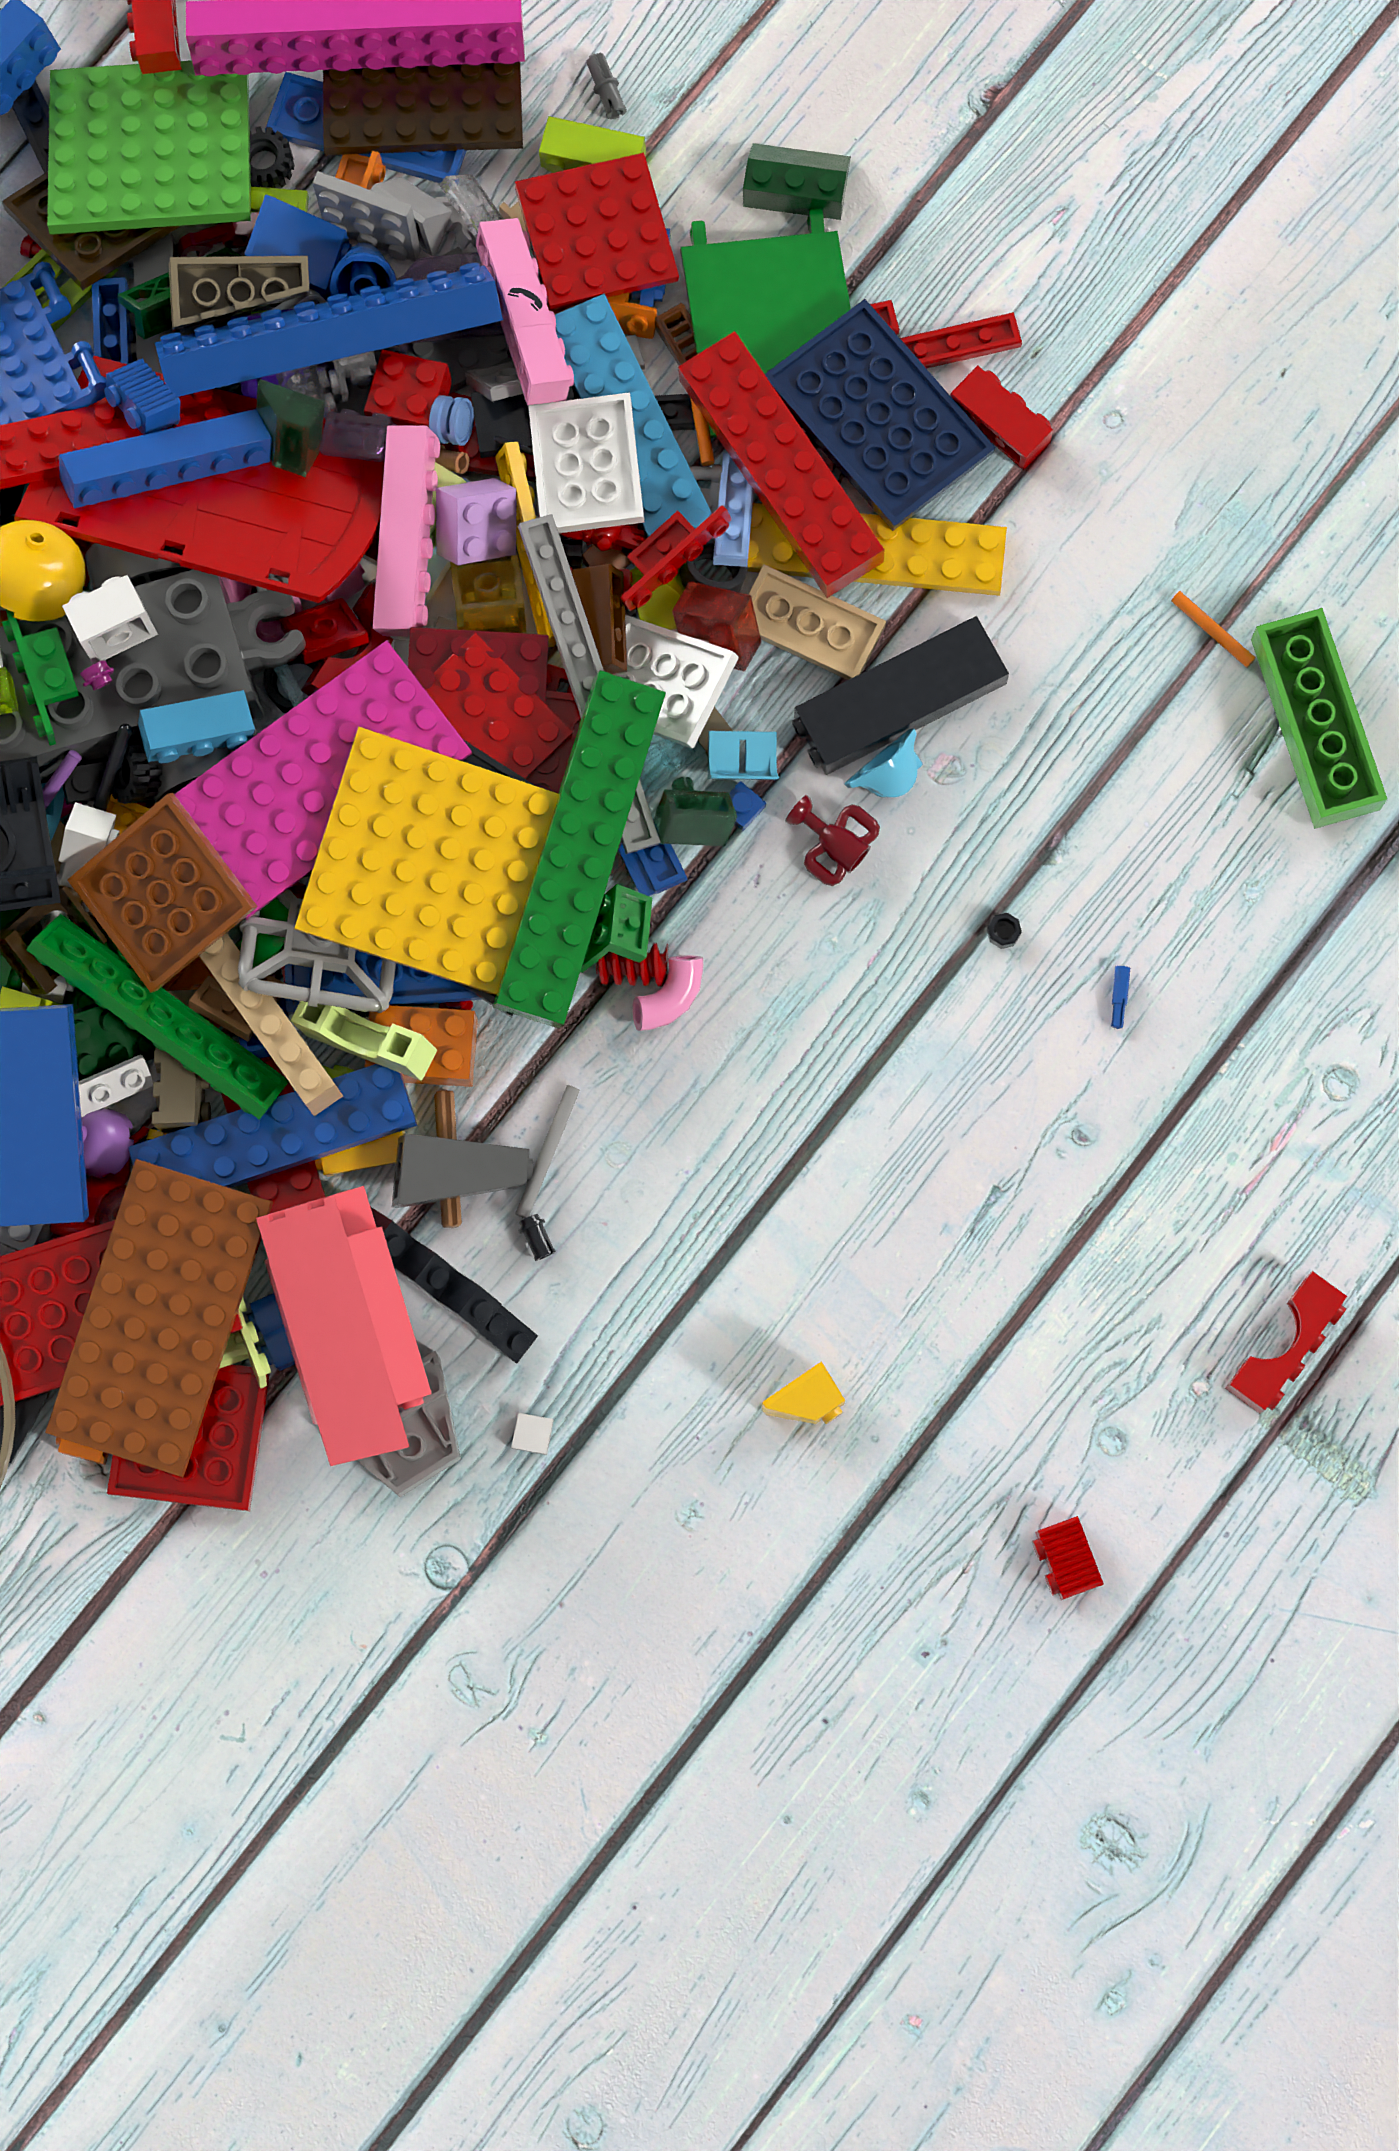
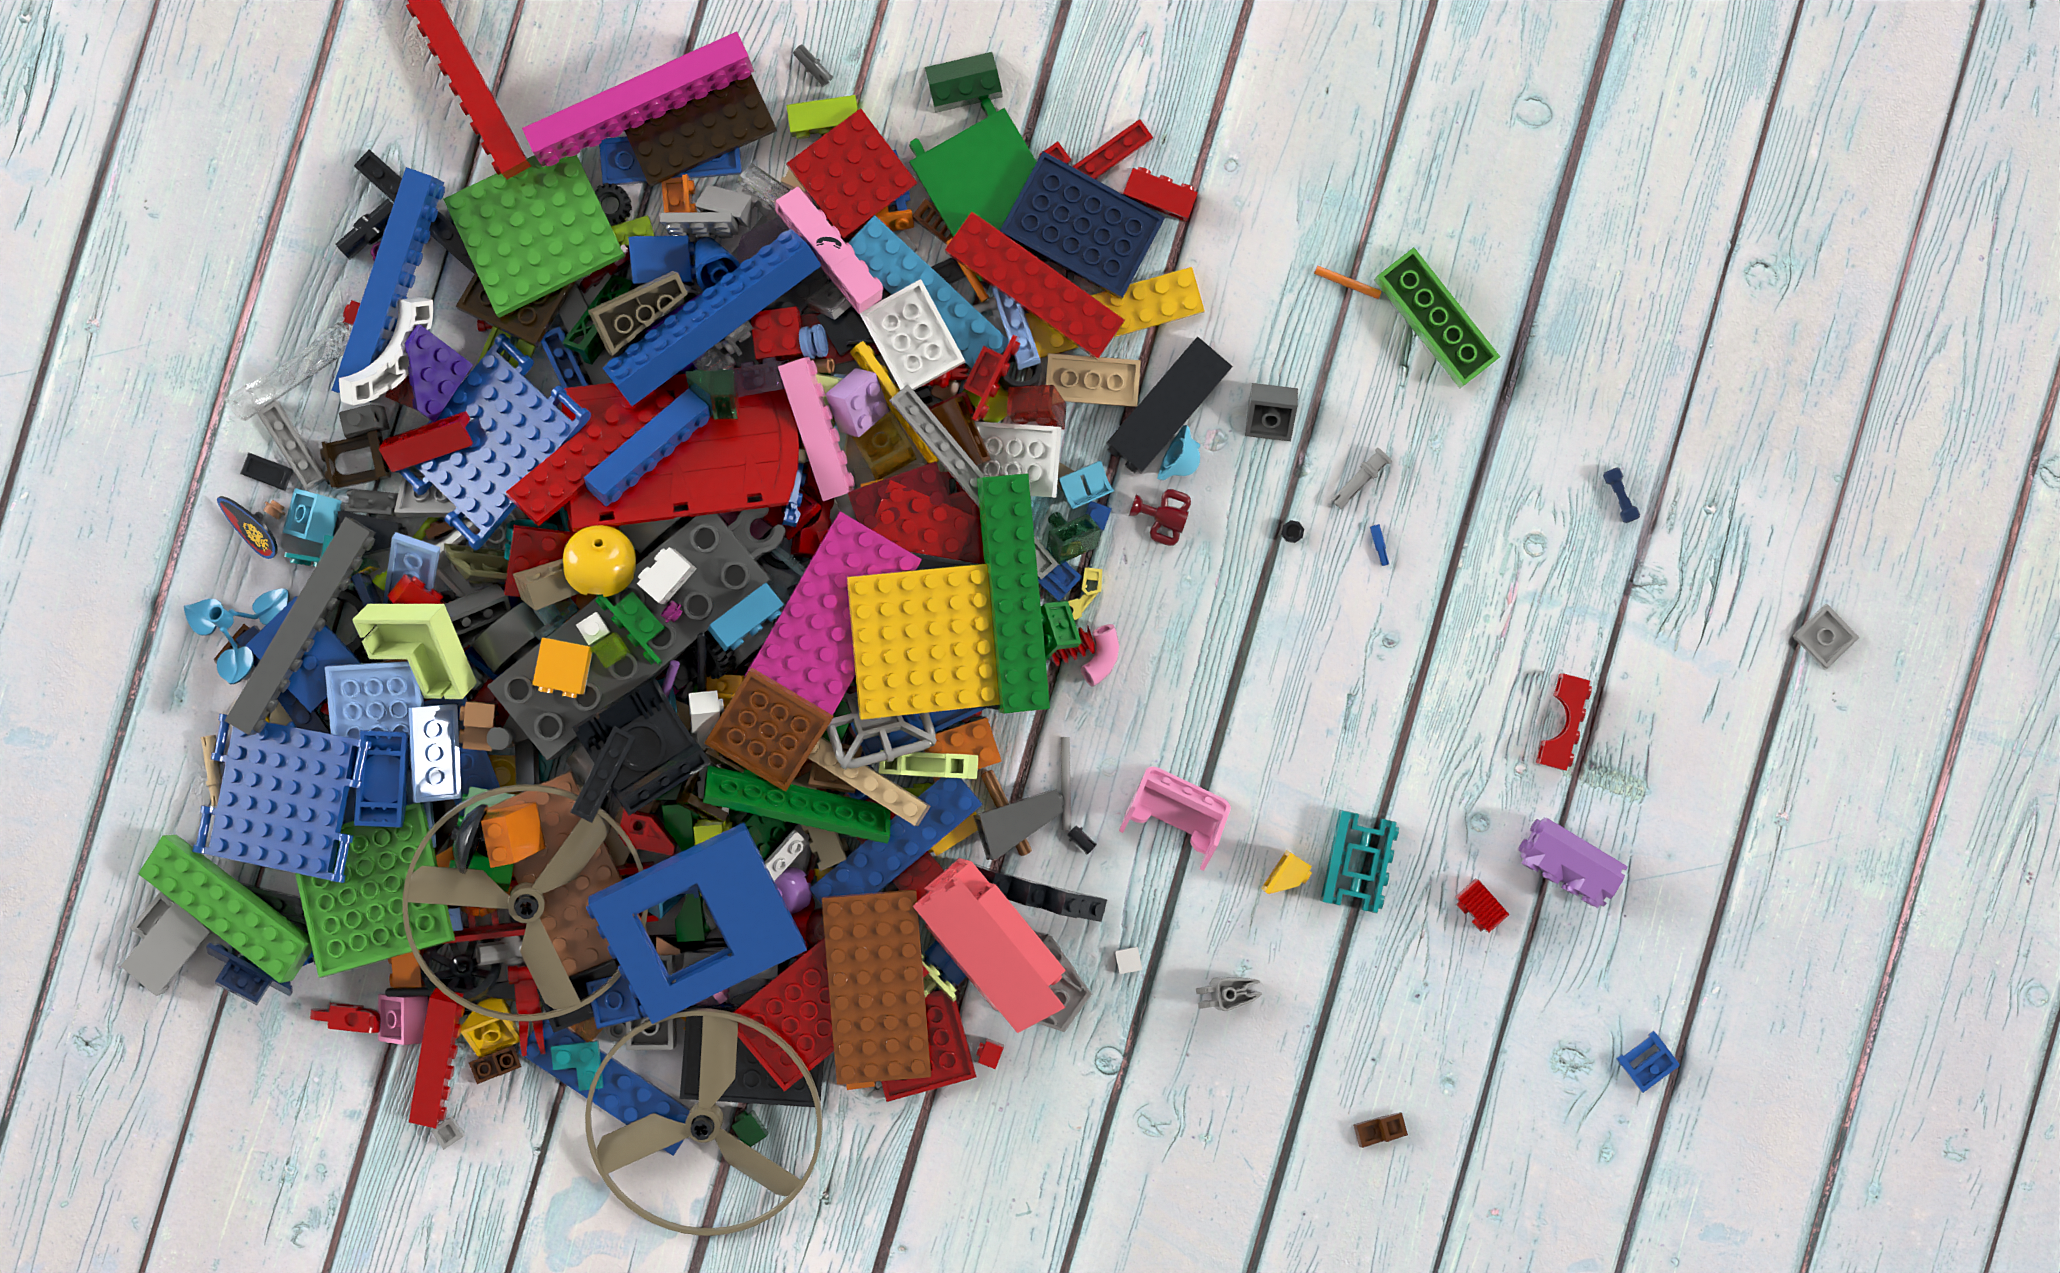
camera: 30 degrees left, 10 degrees up
(142, 397) = (615, 413): blue brick -> none
(281, 1484) = (989, 1053): none -> red plate
(337, 609) = (791, 513): none -> blue hinge
(653, 1533) = (1228, 993): none -> light grey hinge
(670, 915) = (1081, 604): none -> light yellow piece
(691, 1242) = (1181, 806): none -> bright pink windscreen
(794, 1827) = (1380, 1129): none -> reddish brown slope
(894, 1409) = (1340, 857): none -> teal fence
(1038, 758) = (1271, 412): none -> dark grey slope
(1143, 889) = (1368, 470): none -> light grey pin
(1223, 1544) = (1572, 861): none -> medium lavender brick
(1230, 1899) = (1652, 1068): none -> blue plate

